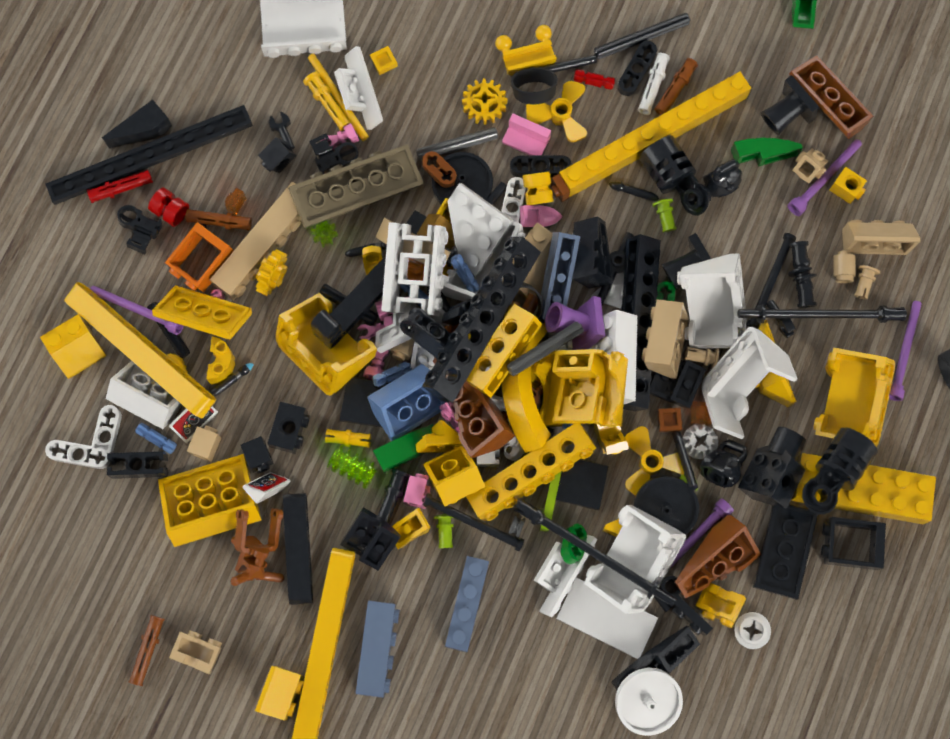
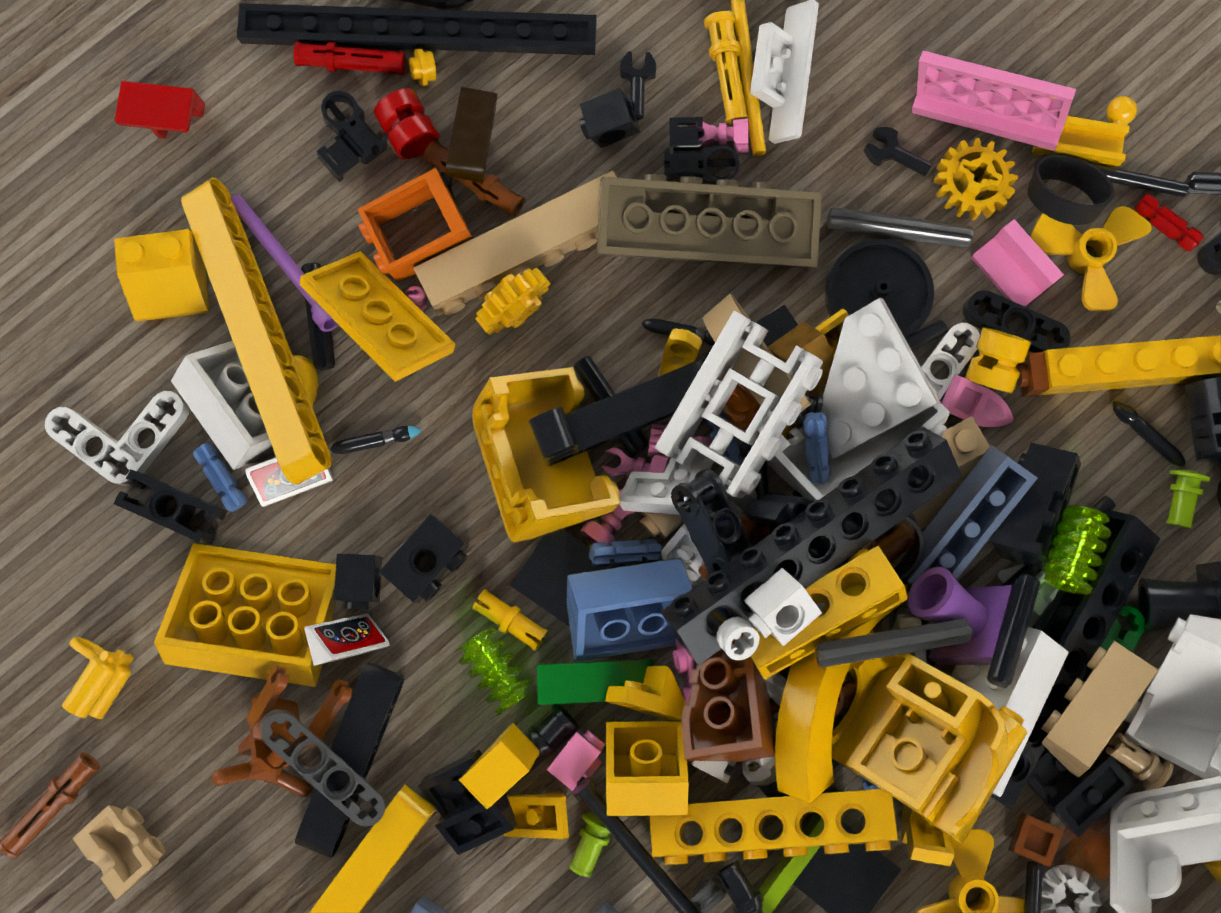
camera: 30 degrees right, 5 degrees up
(27, 258) = (157, 107): none -> red panel
(143, 572) = (99, 681): none -> yellow piece
(162, 173) = (422, 67): none -> yellow plate
(204, 443) = (286, 522): tan brick -> none
(207, 196) = (471, 134): none -> dark brown beam
(223, 364) = (375, 408): yellow cylinder -> none
(235, 201) = (511, 161): clear orange plate -> none
(286, 554) = (320, 770): none -> dark grey beam
(326, 227) = (633, 269): clear neon green gear -> none
(377, 509) = (500, 766): none -> yellow slope
(383, 60) = (845, 42): yellow plate -> none
(436, 106) = (894, 152): none -> black bar
(442, 166) = (861, 253): dark orange beam -> none
(460, 375) = (742, 647): none -> white bush
(473, 59) = (997, 112): none -> bright pink fence
(487, 349) = (781, 607): none -> white brick
(602, 316) = (1013, 631): none -> black axle
(619, 264) = (1074, 547): none -> clear neon green piece

